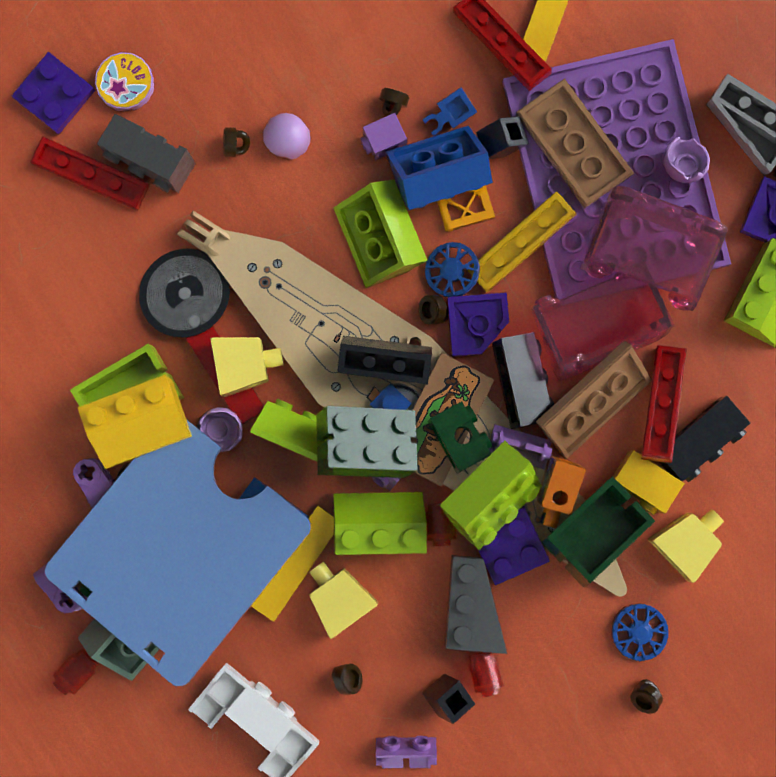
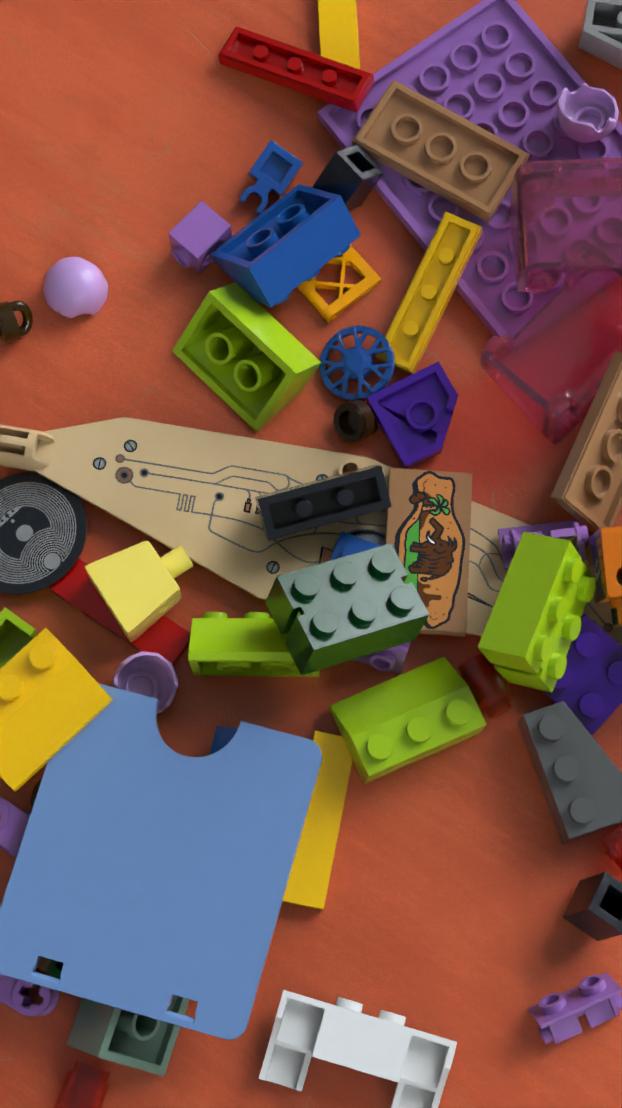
camera: 25 degrees left, 10 degrees down
(339, 599) = (397, 839): light yellow torso -> none
(347, 679) = (454, 943): dark brown tile -> none
(393, 97) = (191, 187): dark brown tile -> none
(444, 428) = (470, 579): dark green brick -> none
(522, 379) = (506, 458): brick -> none

